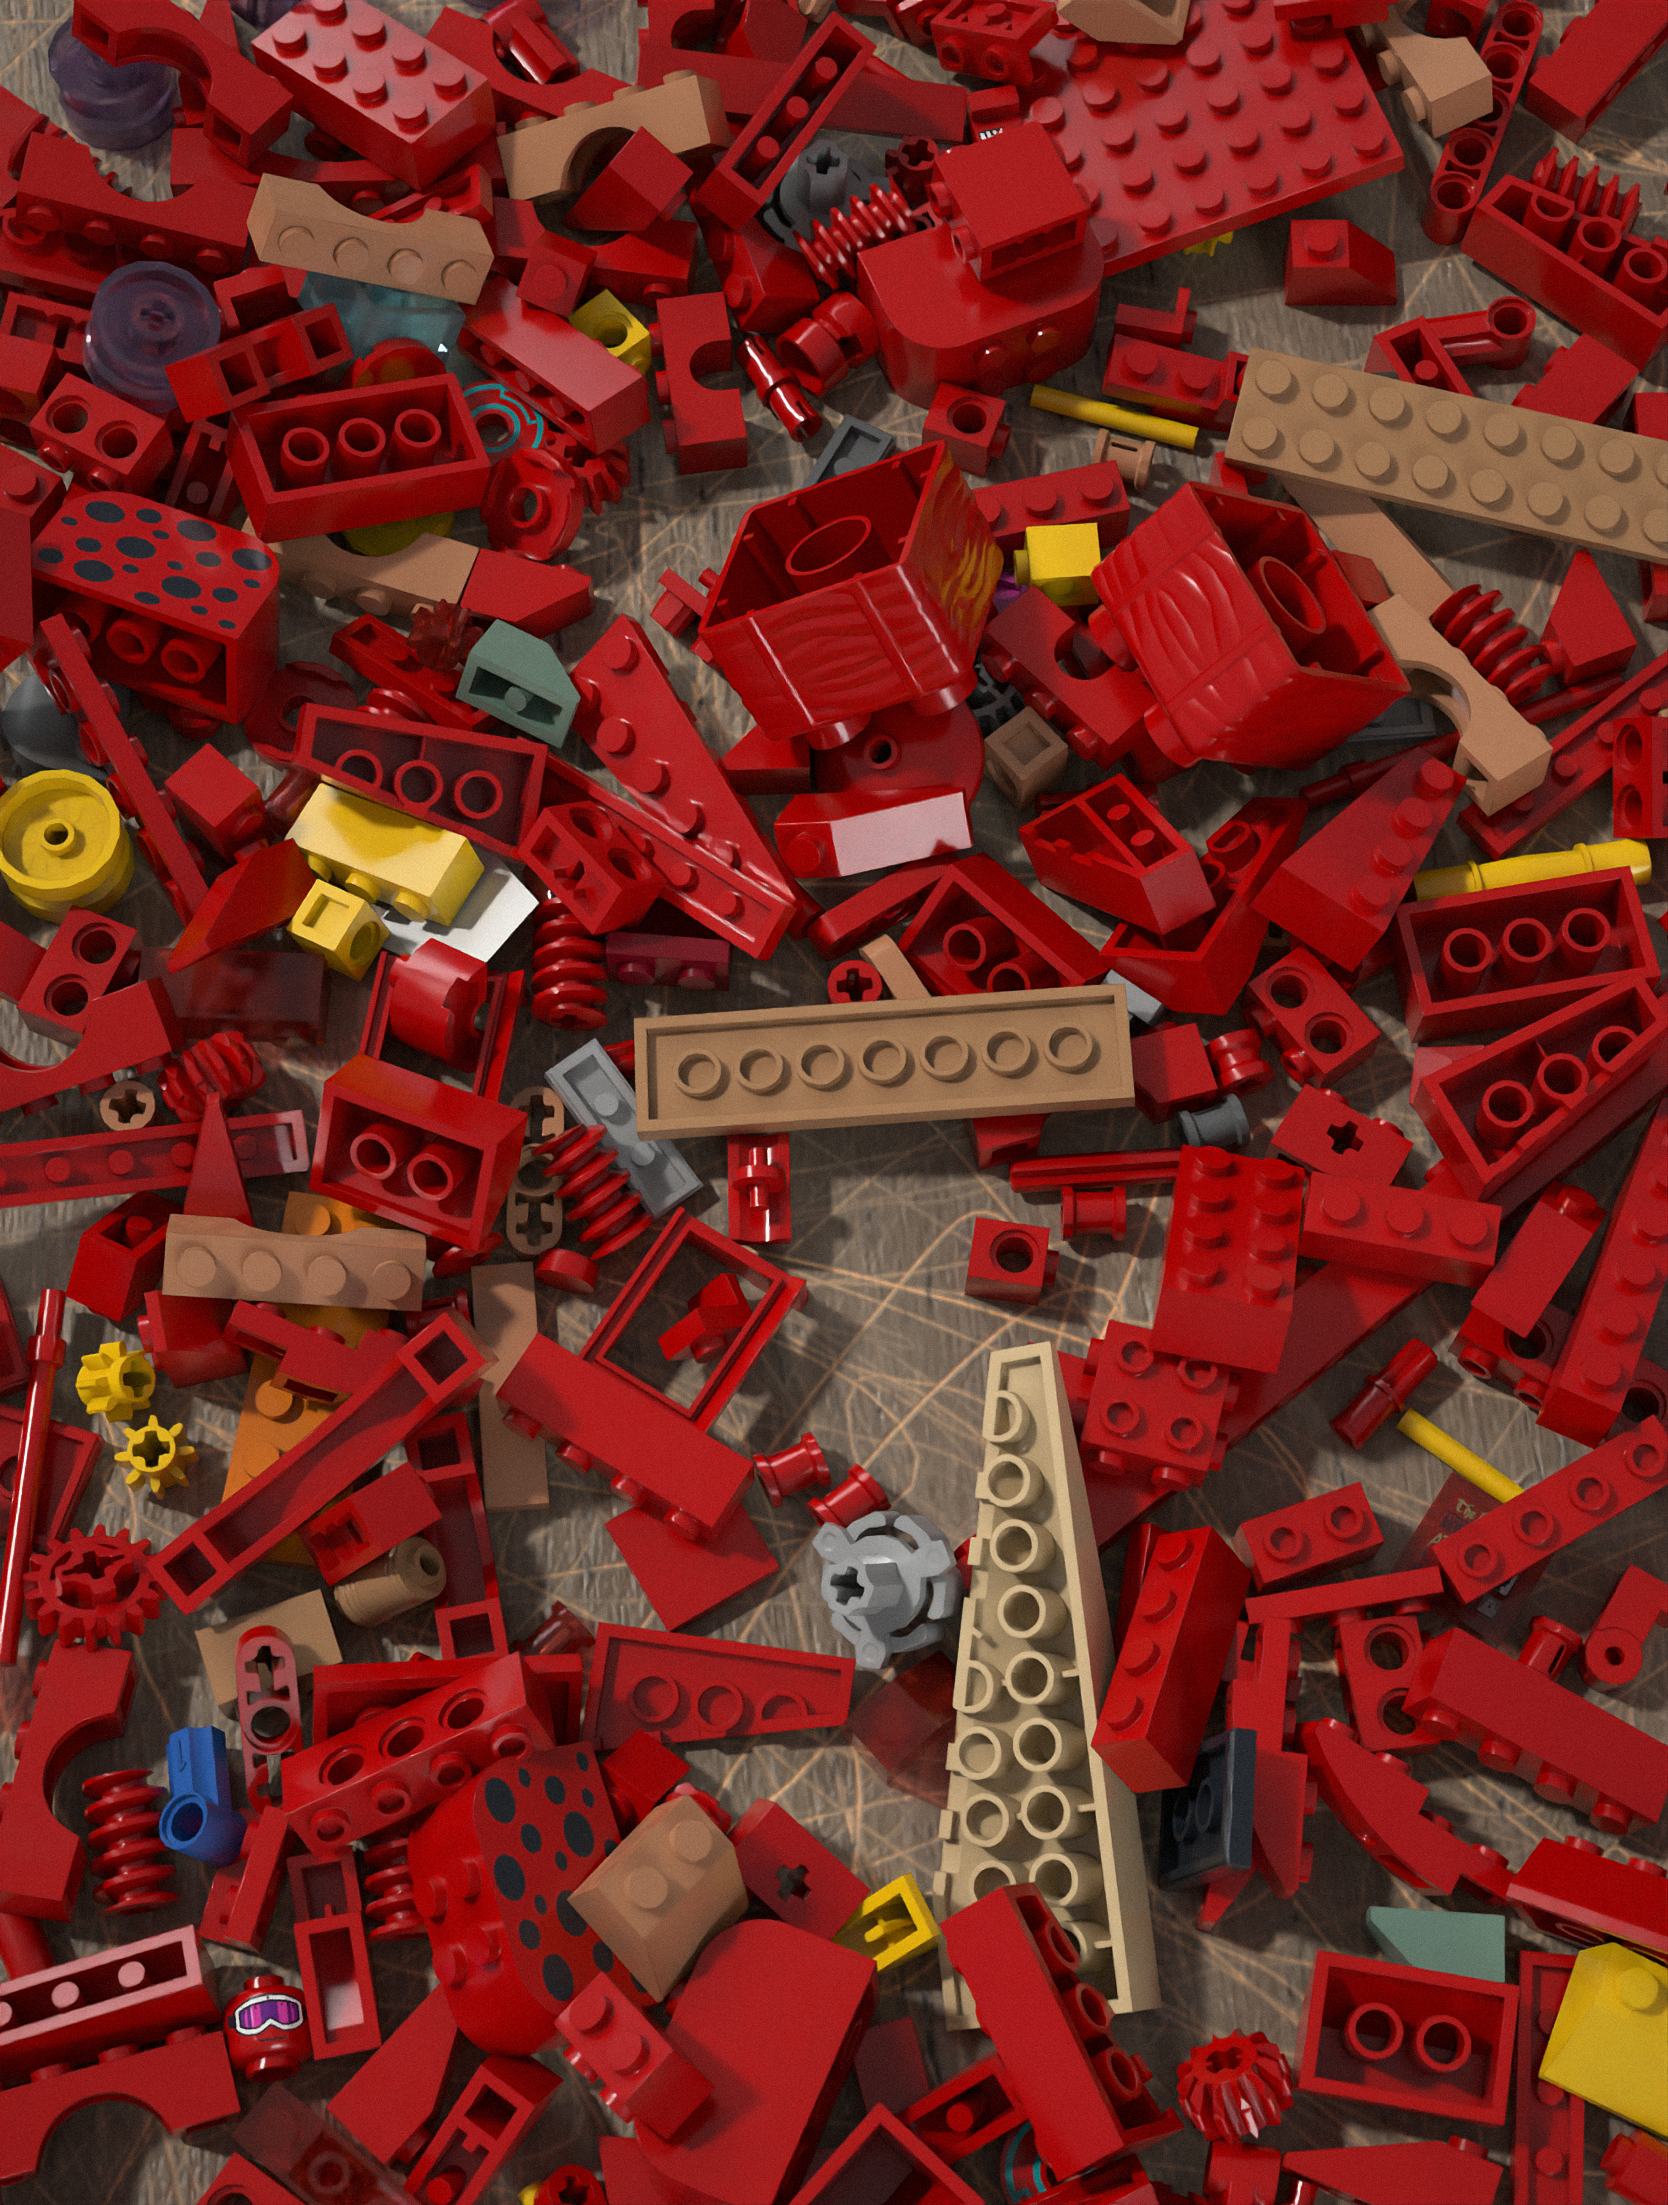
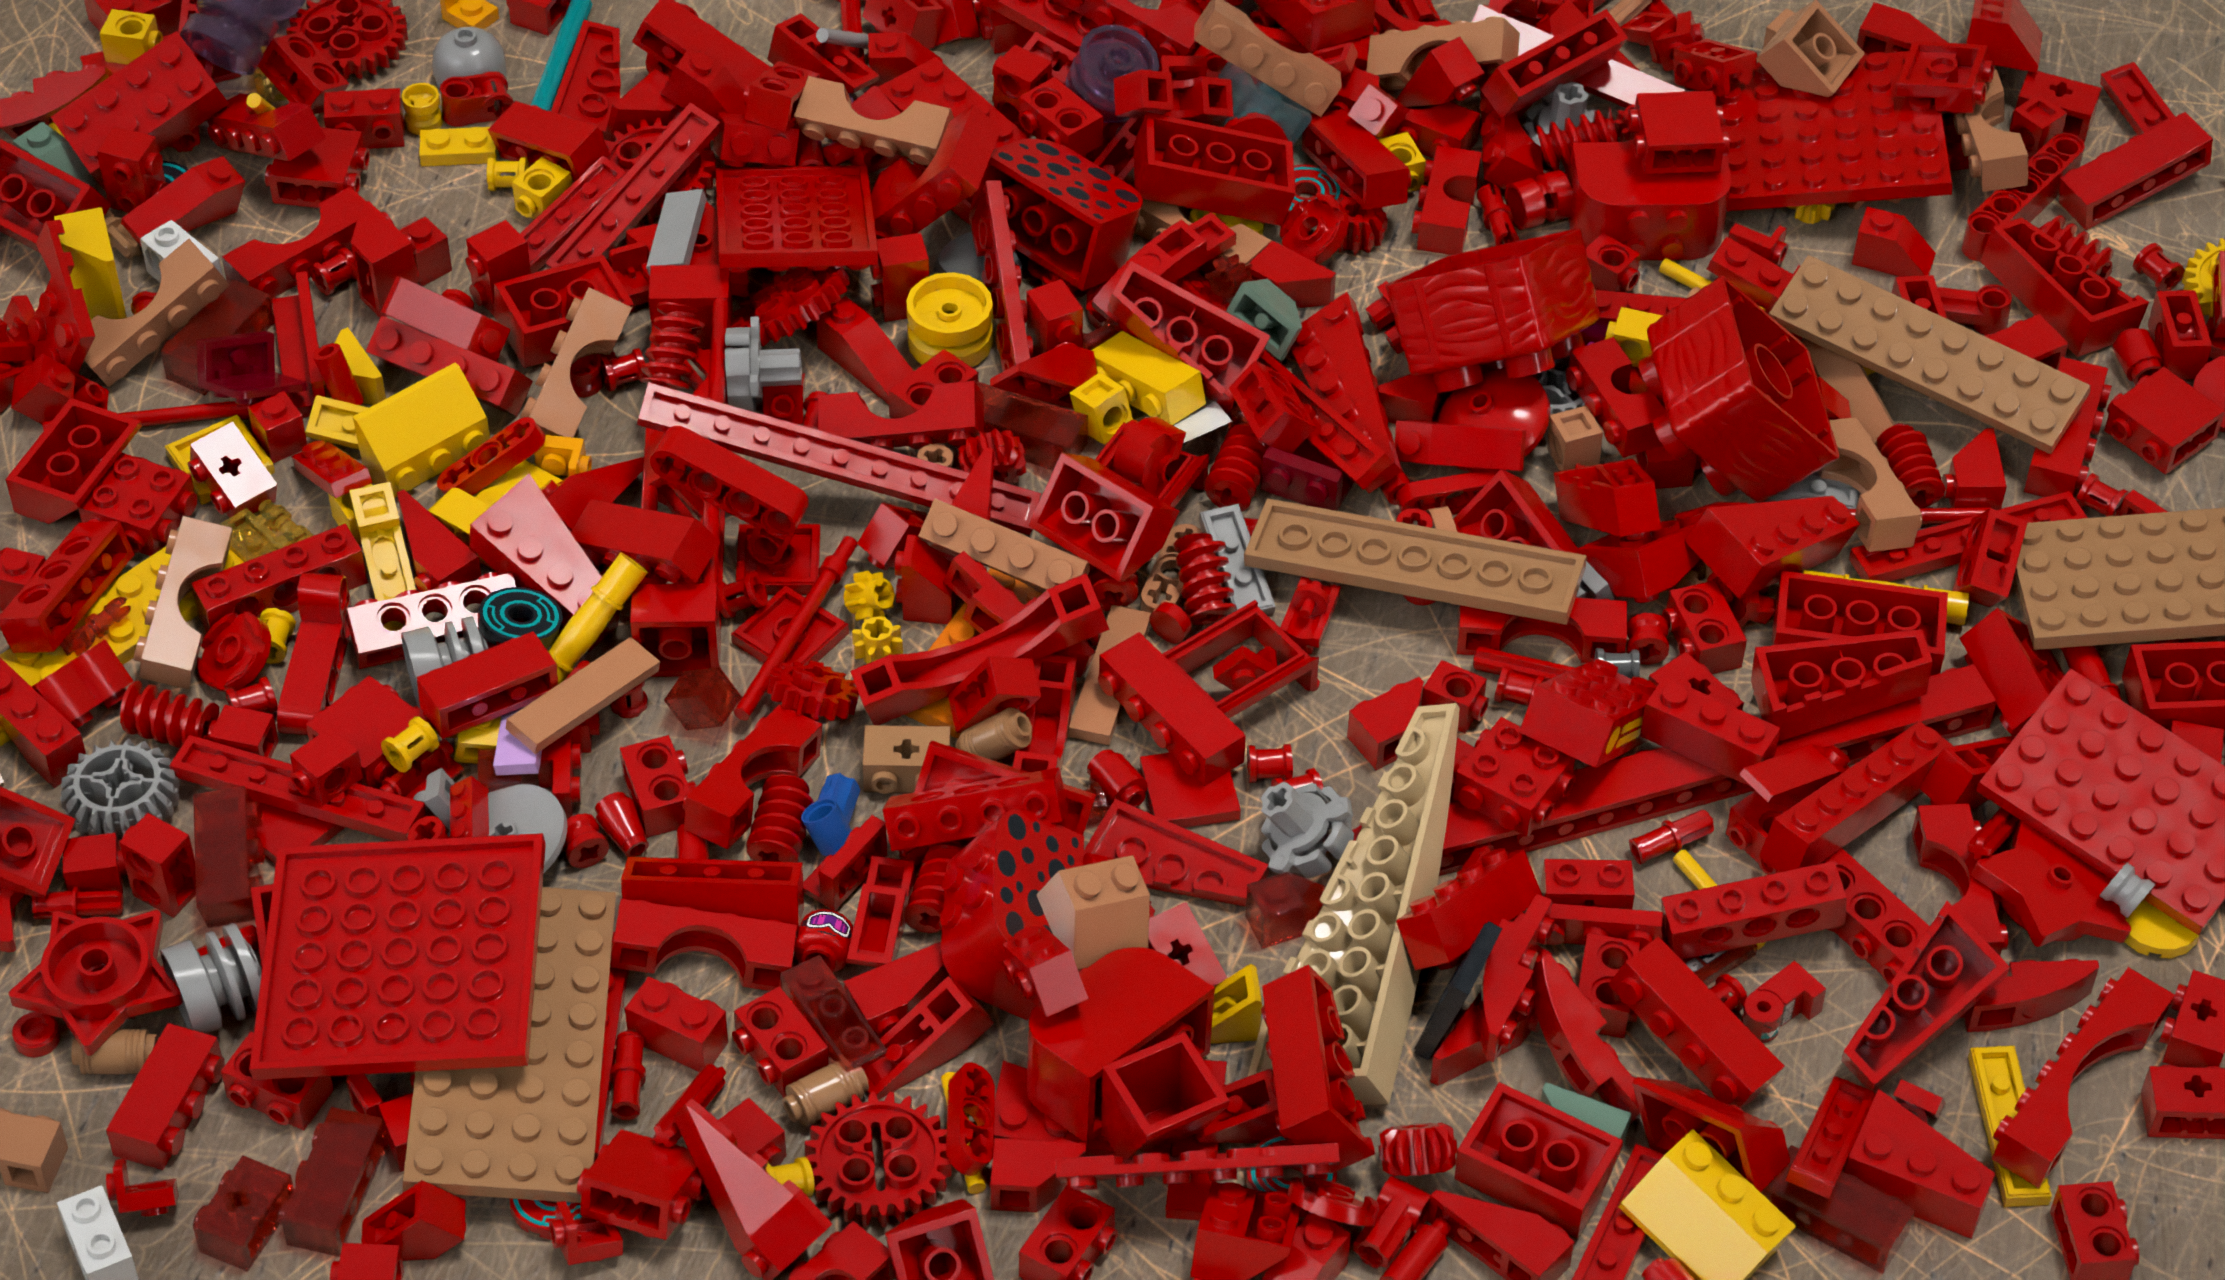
camera: 20 degrees right, 20 degrees down
(248, 1679) = (889, 748): red beam -> none
(345, 641) = (1174, 254): none -> red slope
(588, 1580) = (1117, 778): none -> red brick
(936, 1342) = (1379, 723): none -> red slope

